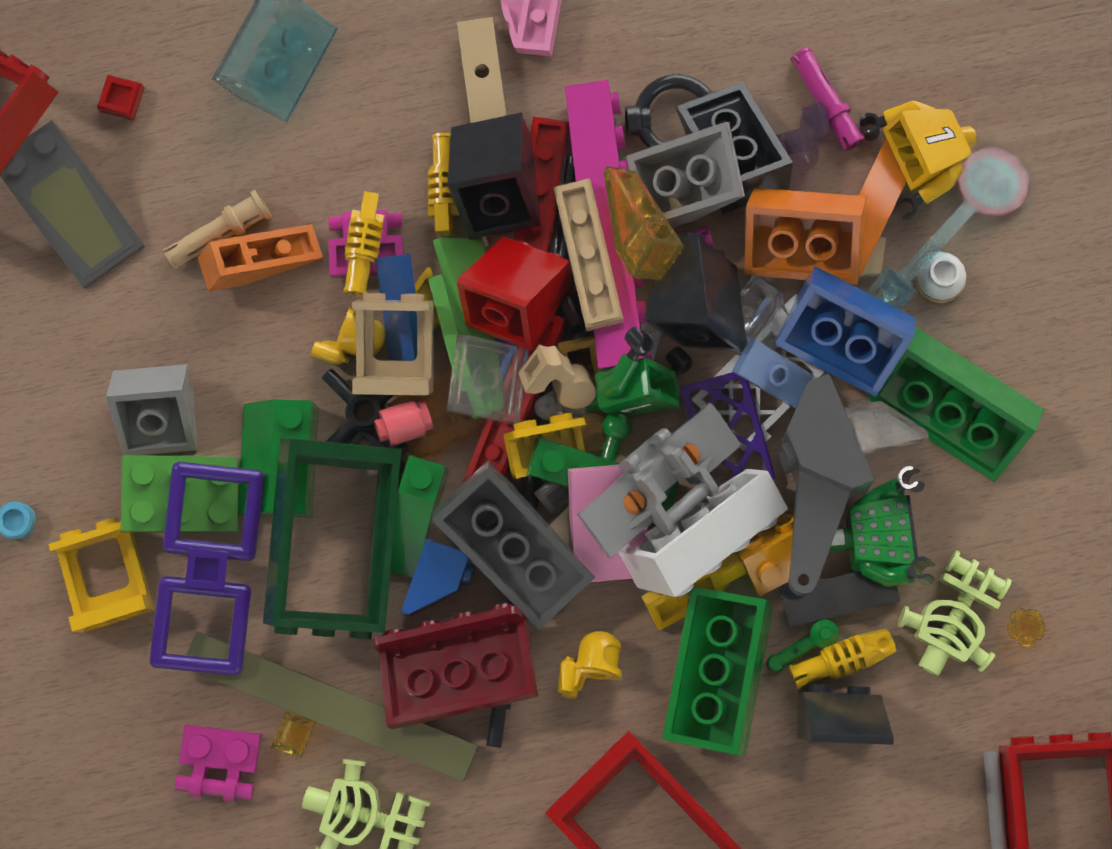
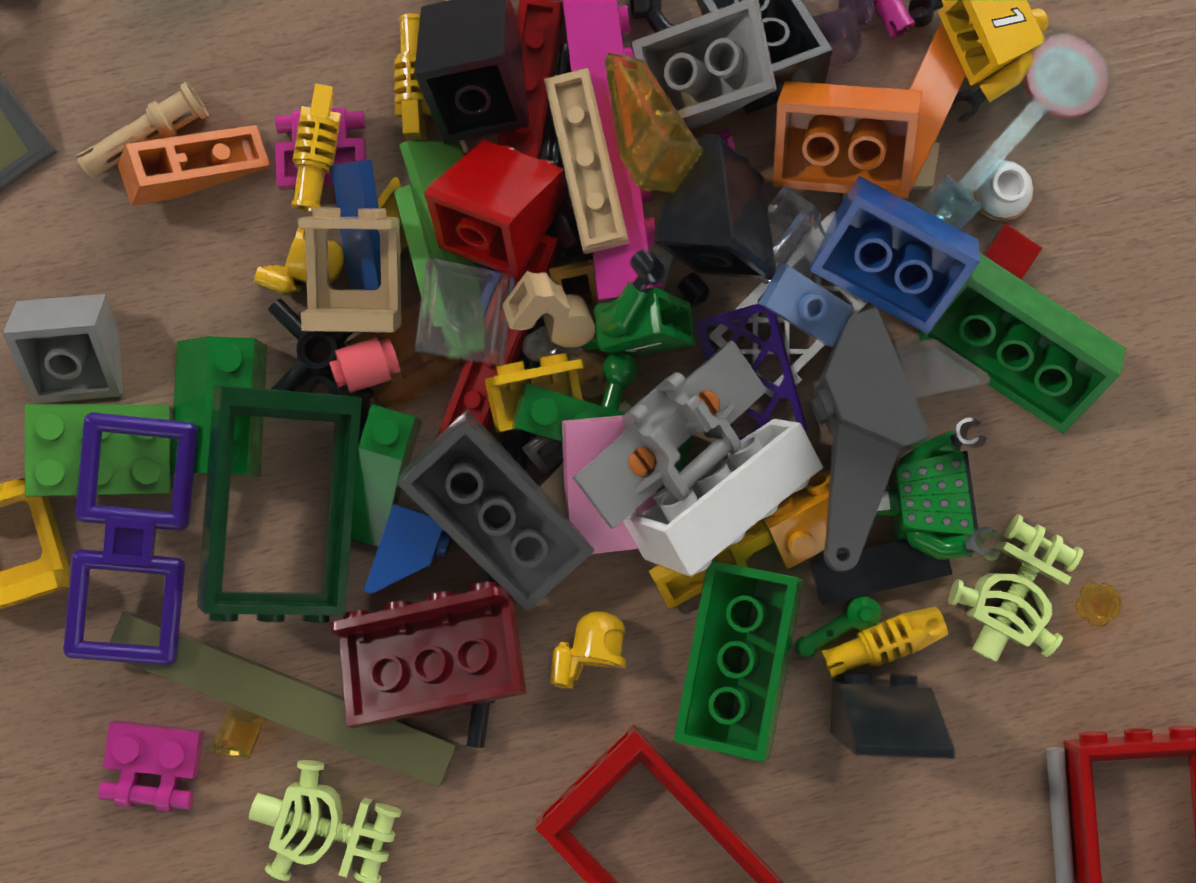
camera: 10 degrees left, 5 degrees up
(949, 328) = (1012, 251): none -> red tile

